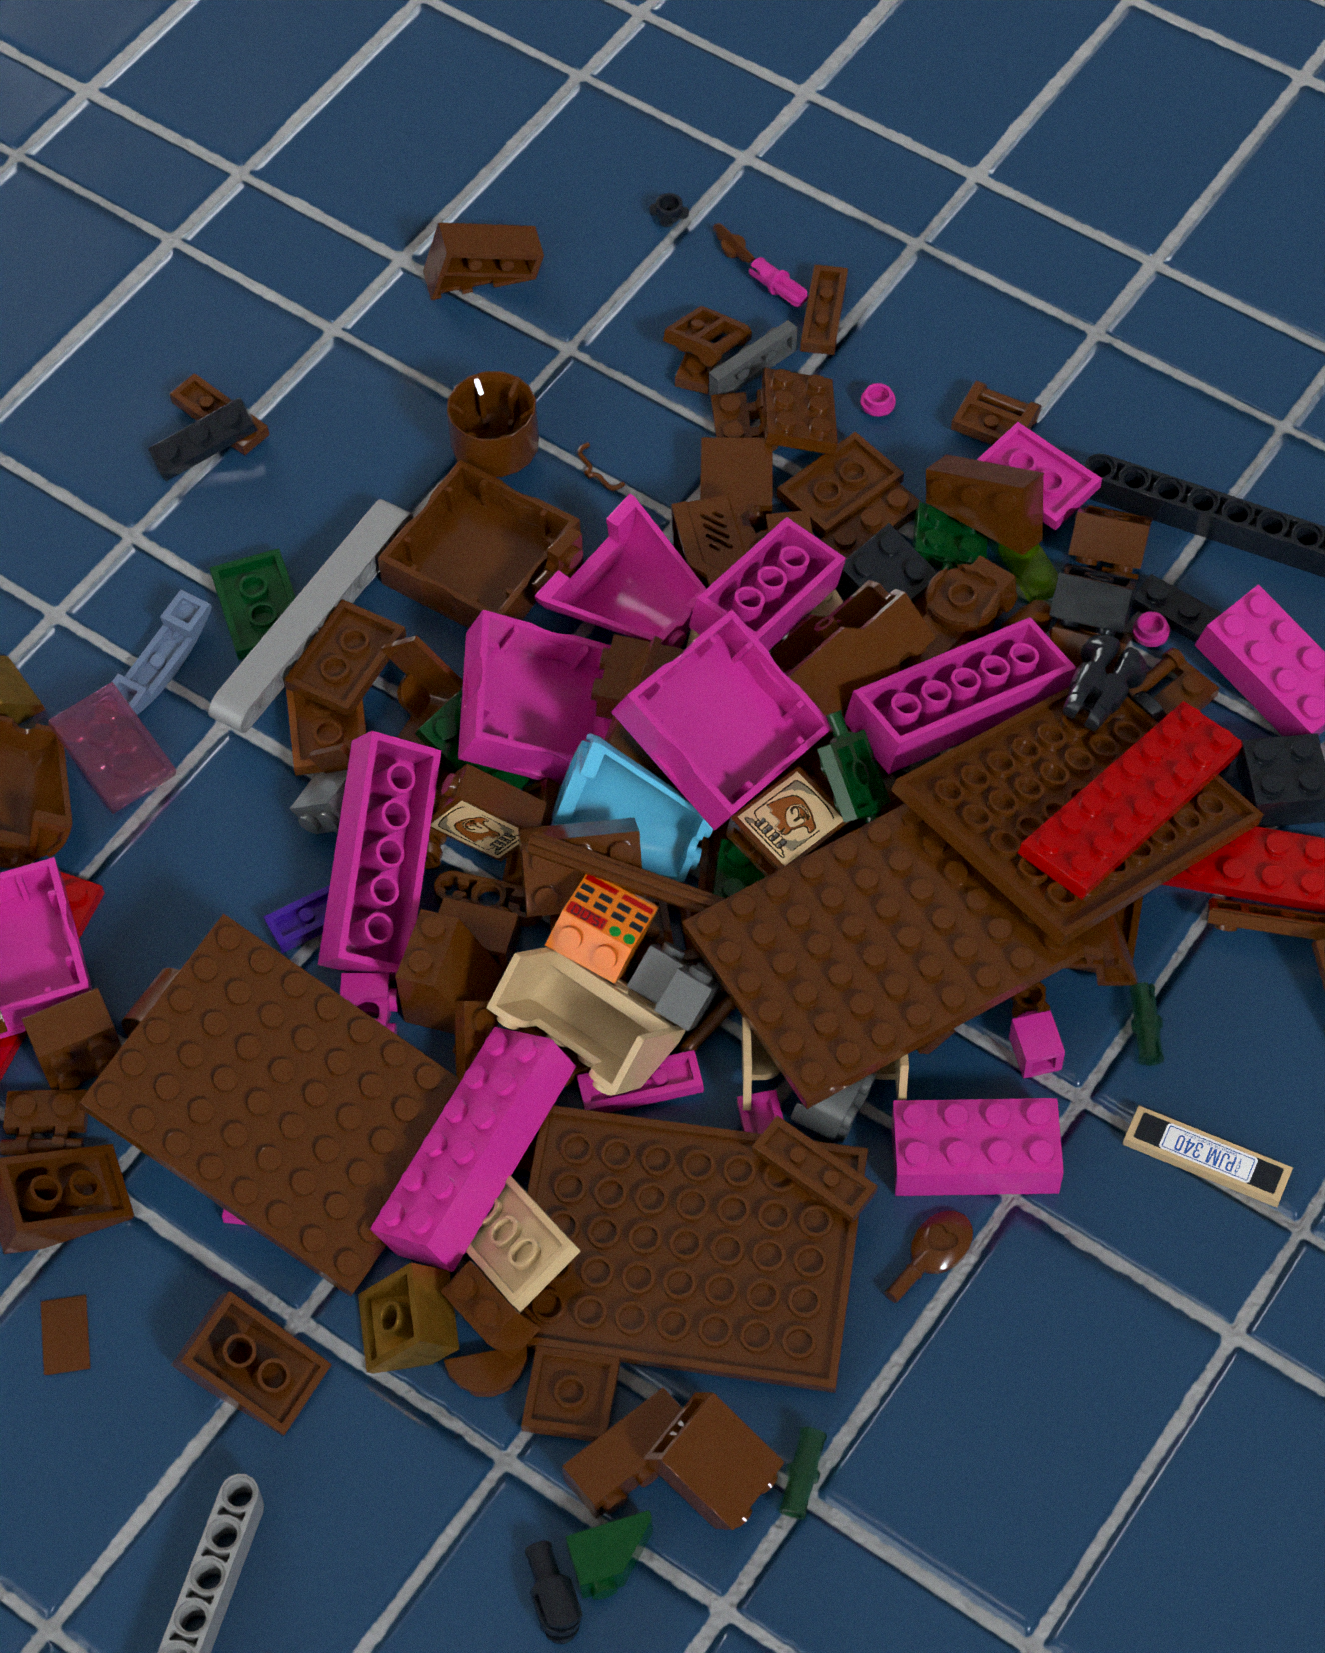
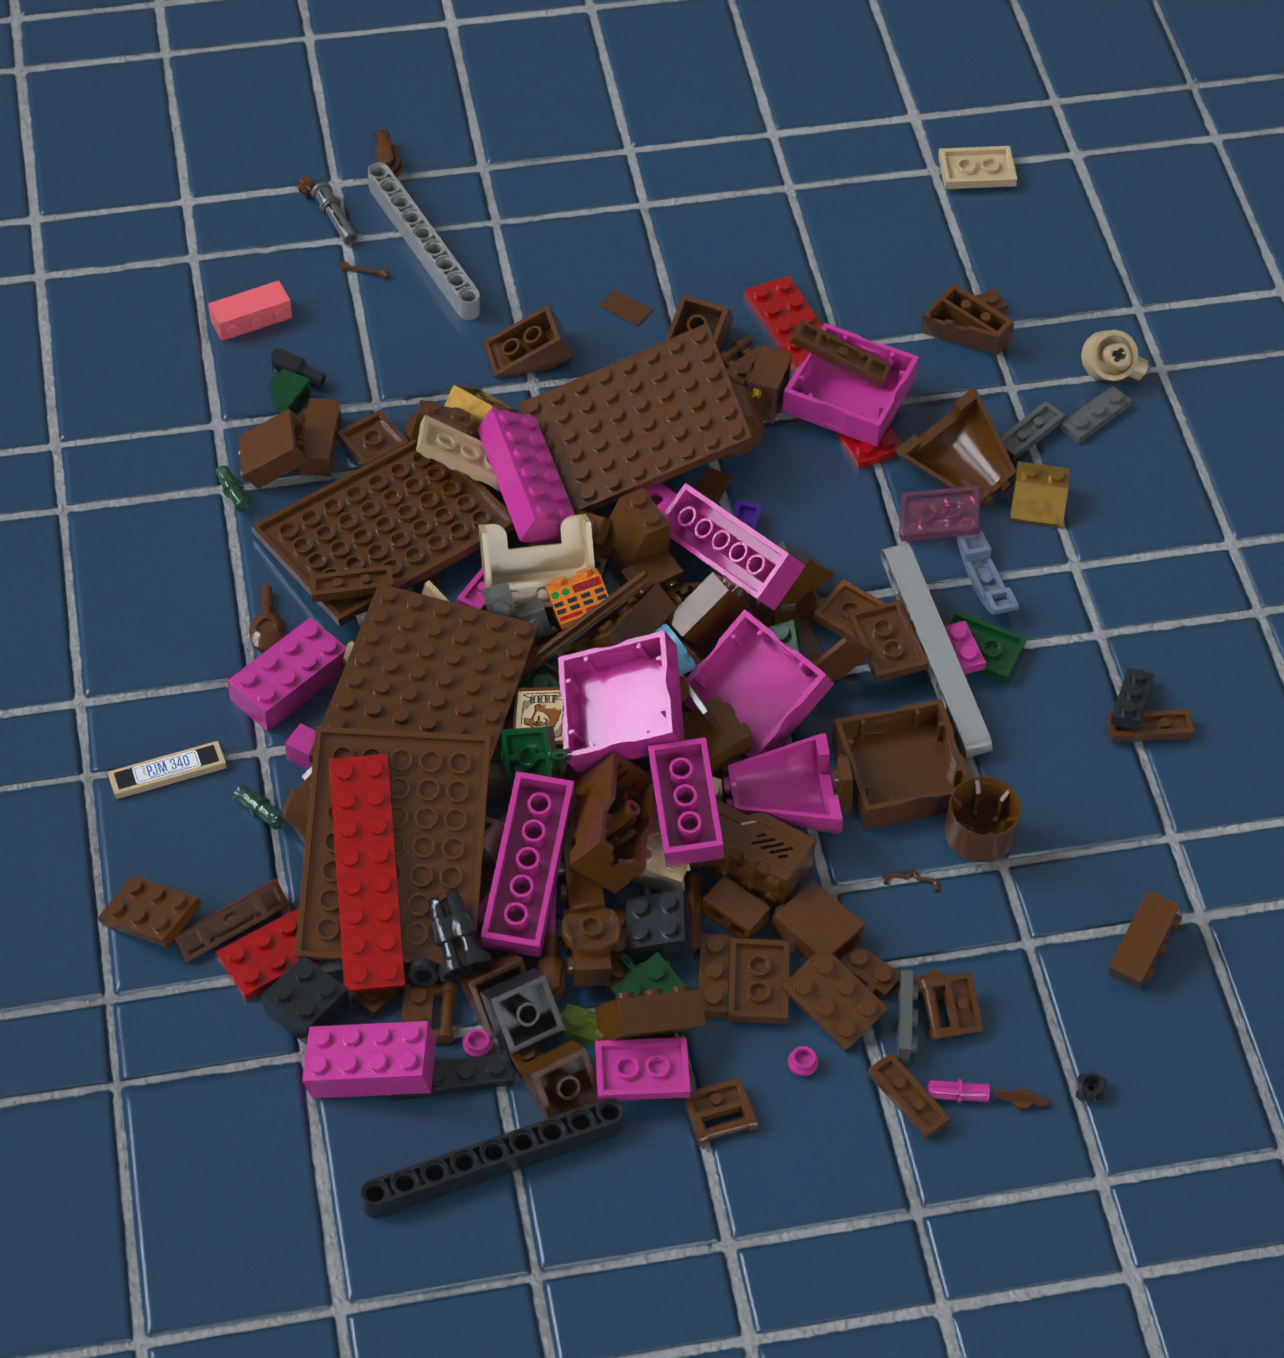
camera: 130 degrees right, 5 degrees down
(279, 596) = (965, 647): none -> dark pink plate

